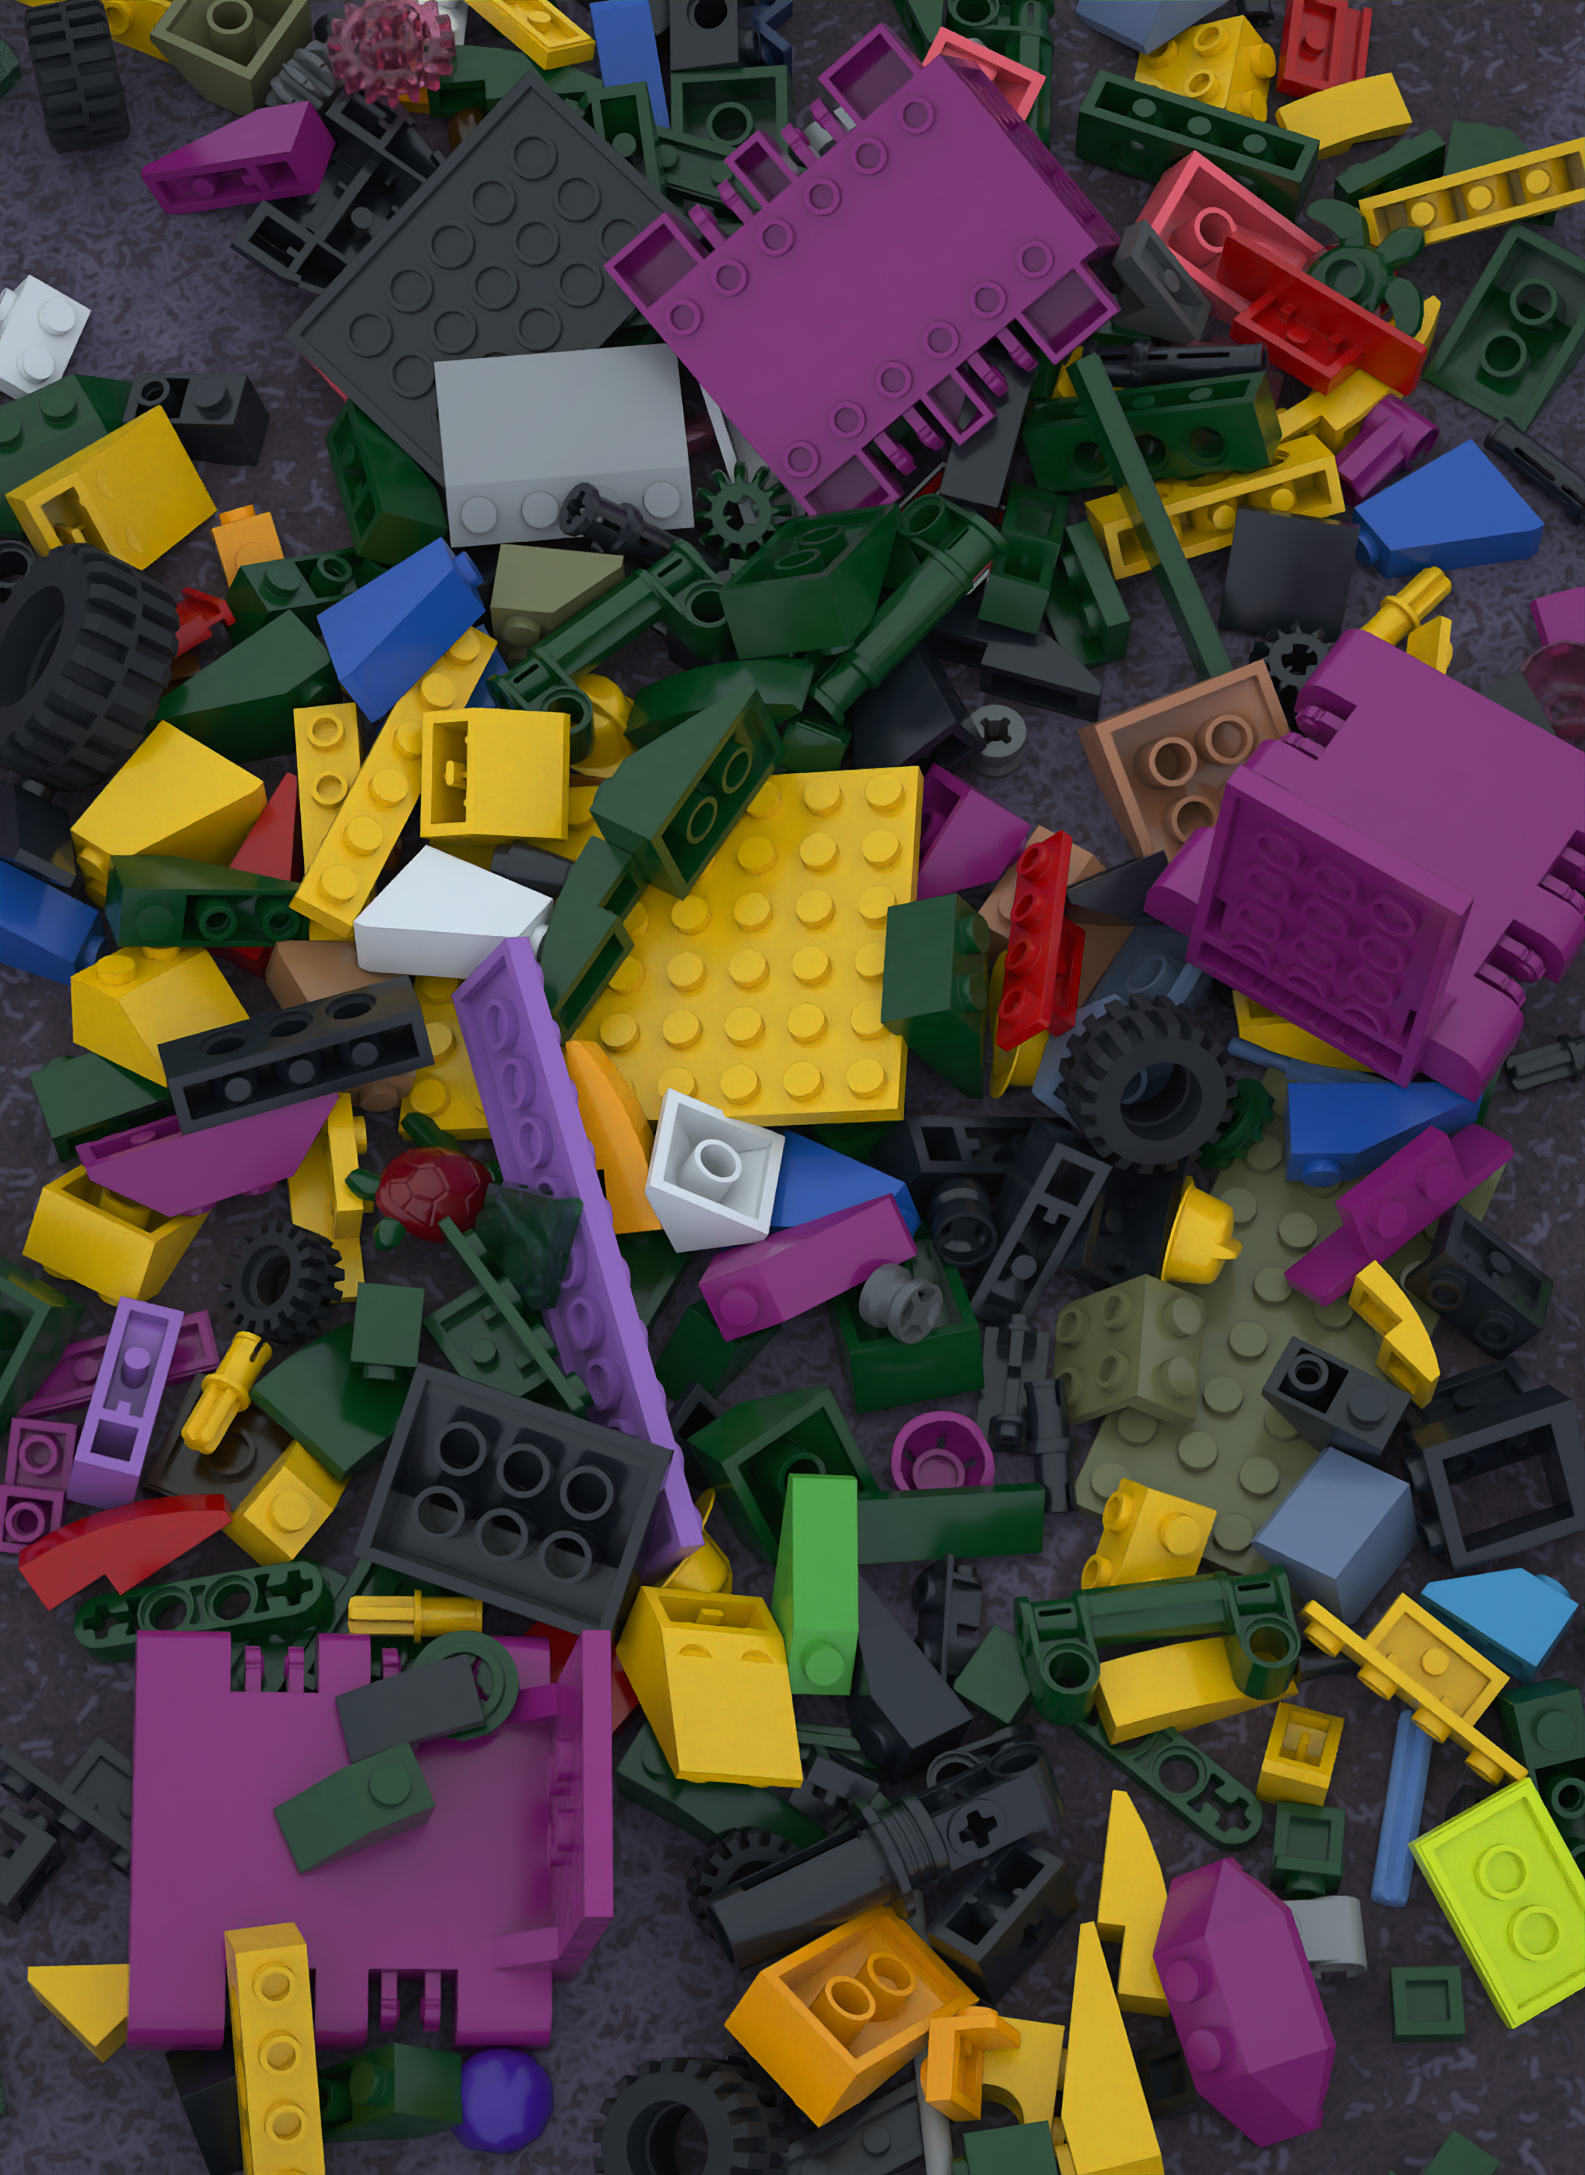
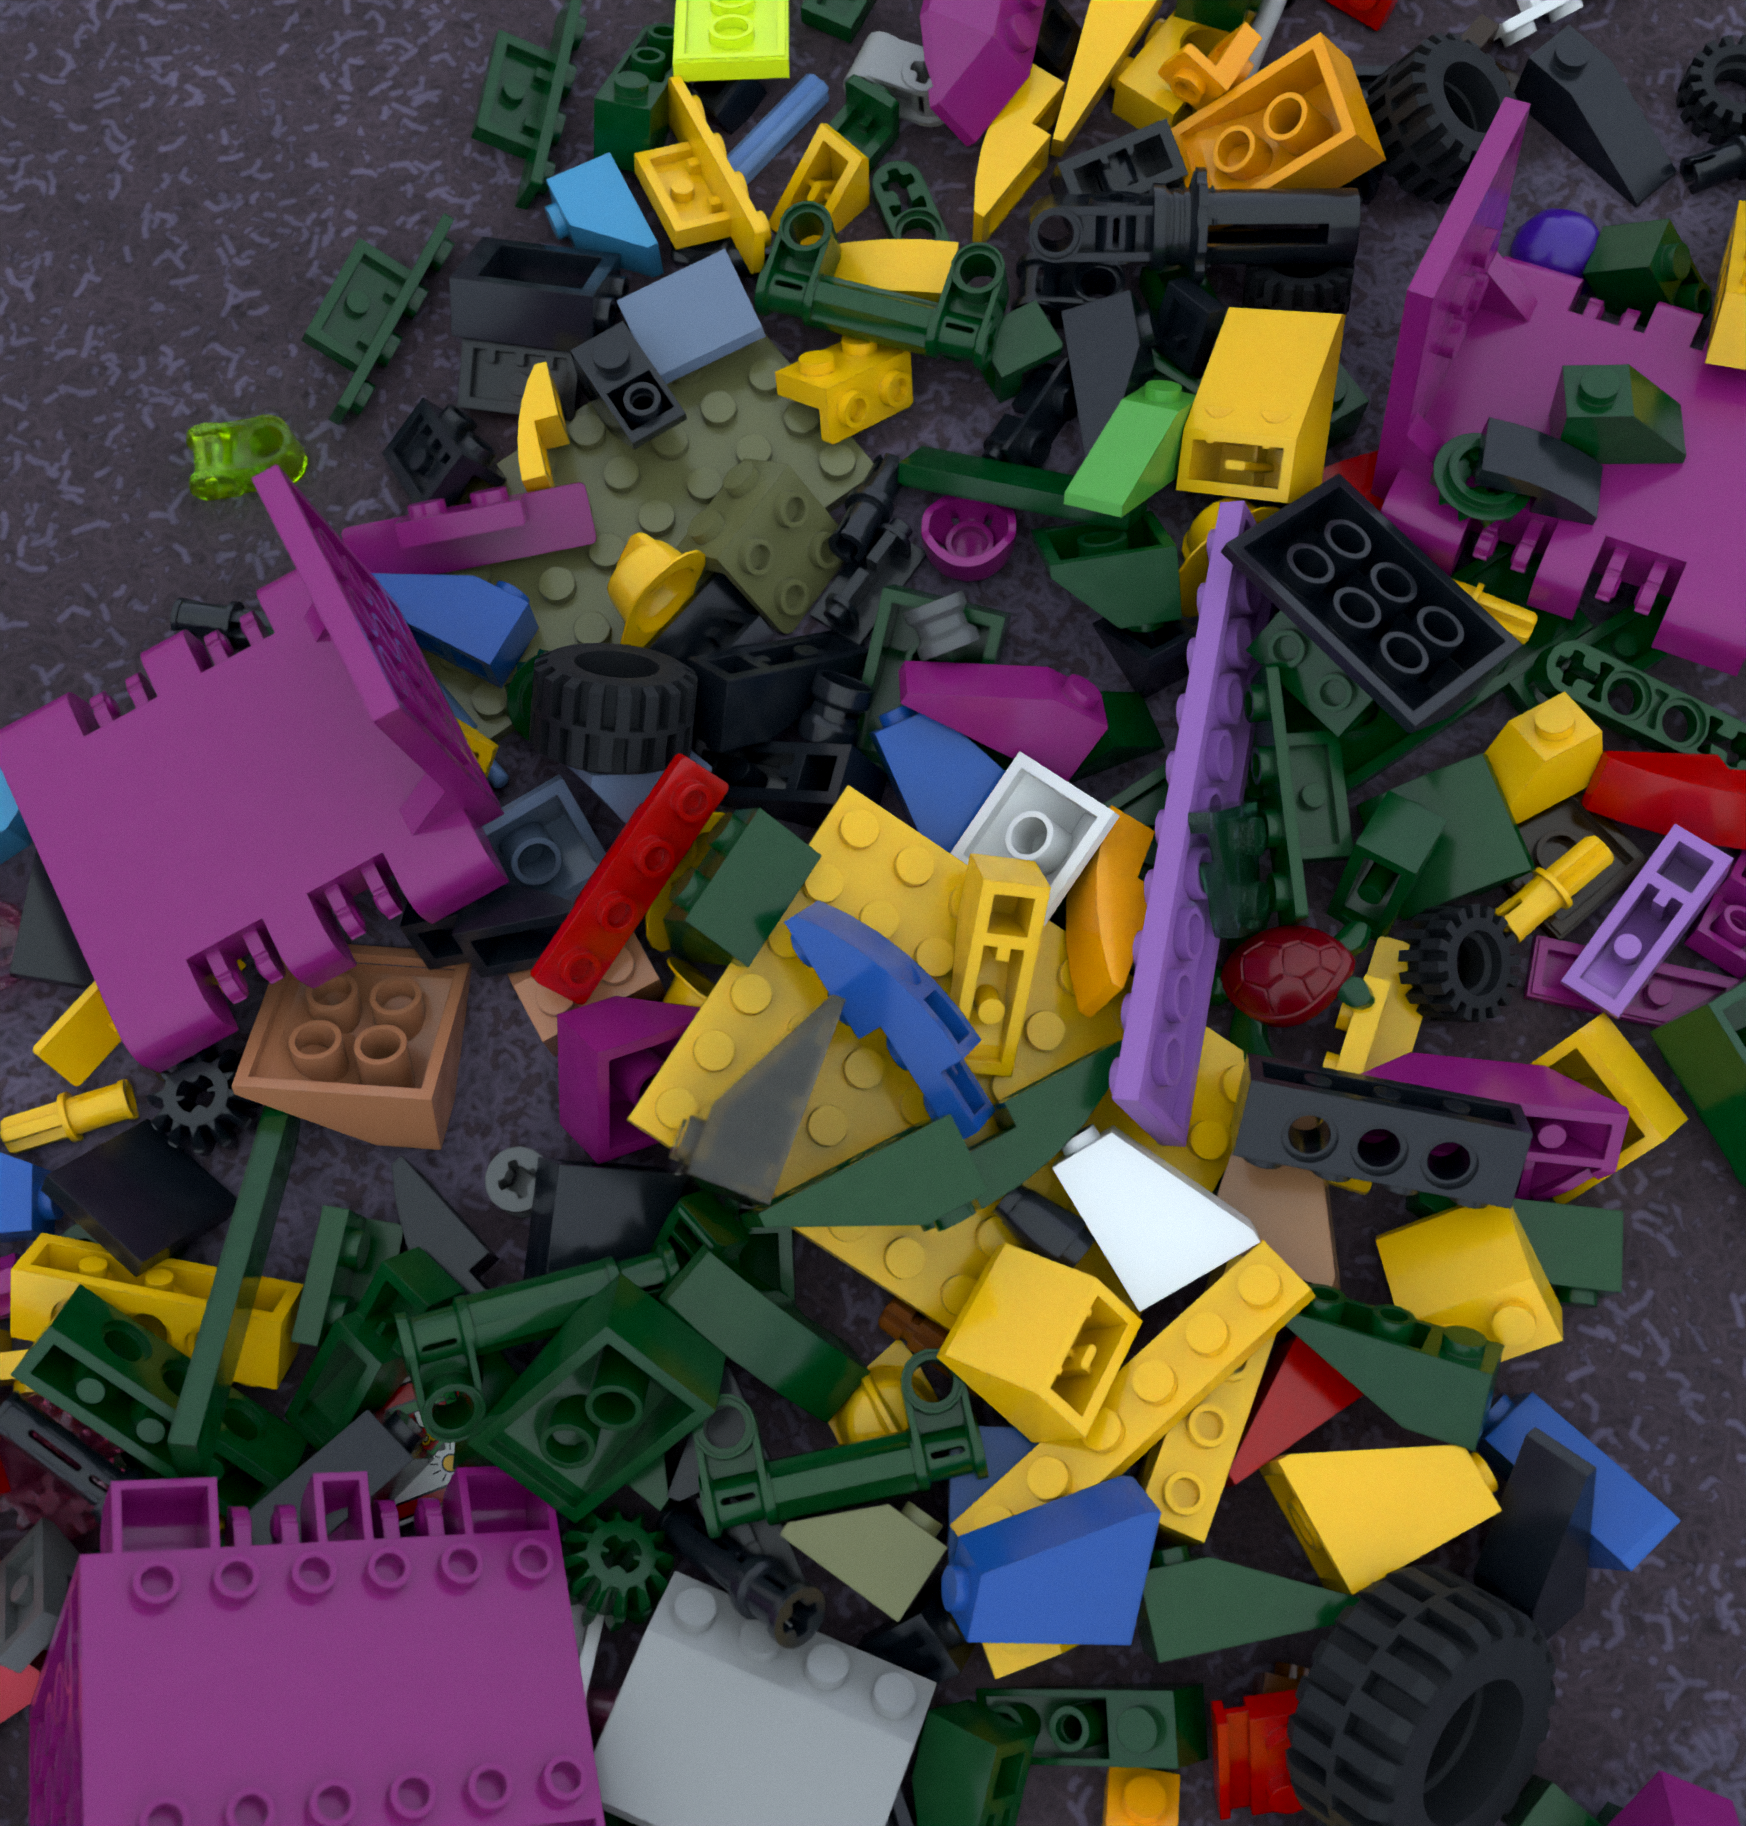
camera: 150 degrees left, 10 degrees up
(690, 1032) = (997, 954): none -> yellow slope
(744, 940) = (893, 992): none -> blue slope
(812, 785) = (749, 1126): none -> clear smoke slope

